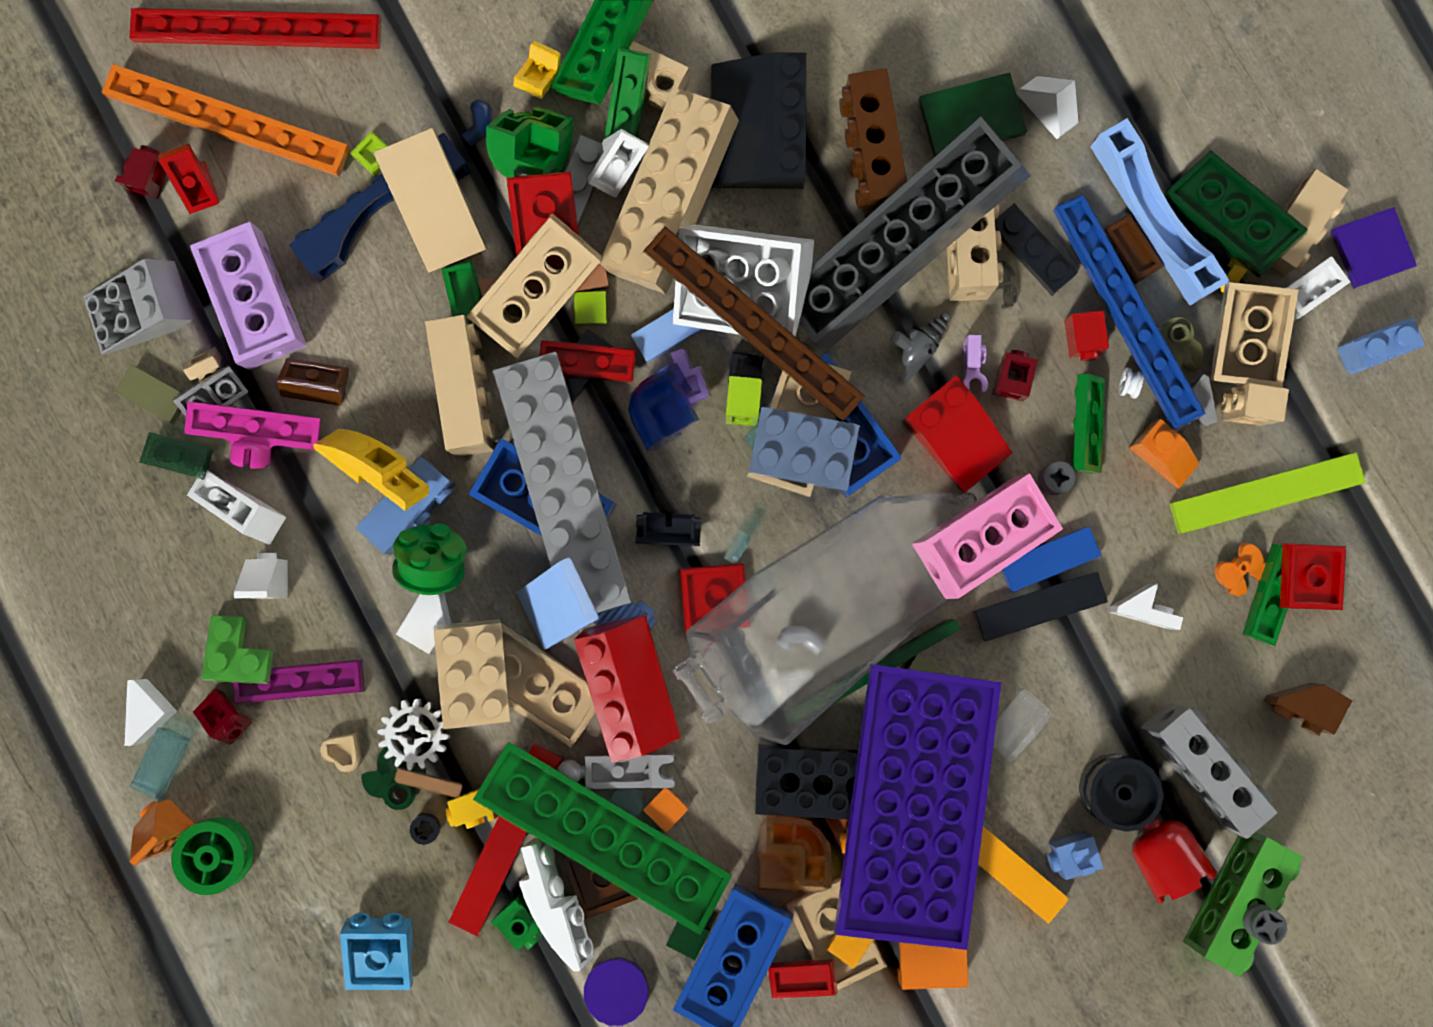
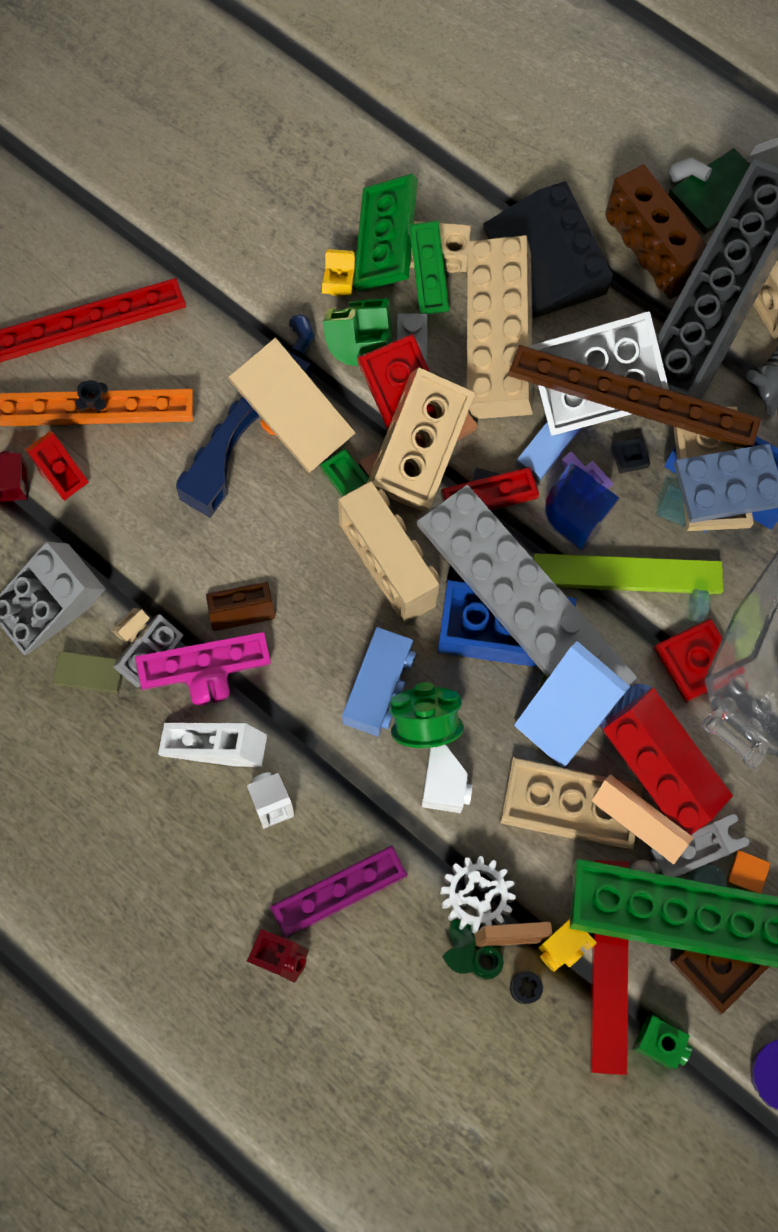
camera: 30 degrees left, 15 degrees down
(144, 711) = (200, 981): white slope -> none
(157, 830) = (261, 1091): orange slope -> none
(160, 763) = (231, 1030): clear light blue tile -> none
(176, 456) = (135, 719): clear green plate -> none
(228, 292) = (154, 526): lavender brick -> none
(228, 660) = (266, 896): bright green plate -> none
(231, 854) = (308, 1113): green wheel -> none
(237, 114) = (89, 388): none -> black plate
(343, 751) = (412, 943): tan tile -> none
(364, 152) = (216, 392): lime tile -> none
(375, 462) = (344, 645): yellow slope -> none
(377, 952) = (537, 1133): dark azure plate -> none
(471, 673) = (514, 806): tan brick -> none
(555, 915) = (698, 1017): white slope -> none
(584, 728) = (642, 819): none -> light nougat tile
(590, 308) = (470, 452): lime tile -> none
(617, 162) = (444, 319): white slope -> none
(681, 531) = (616, 616): black hinge -> none
(686, 489) = (632, 573): none -> lime tile
(743, 401) = (648, 473): lime panel -> none
(948, 78) = (688, 167): none -> light grey arm

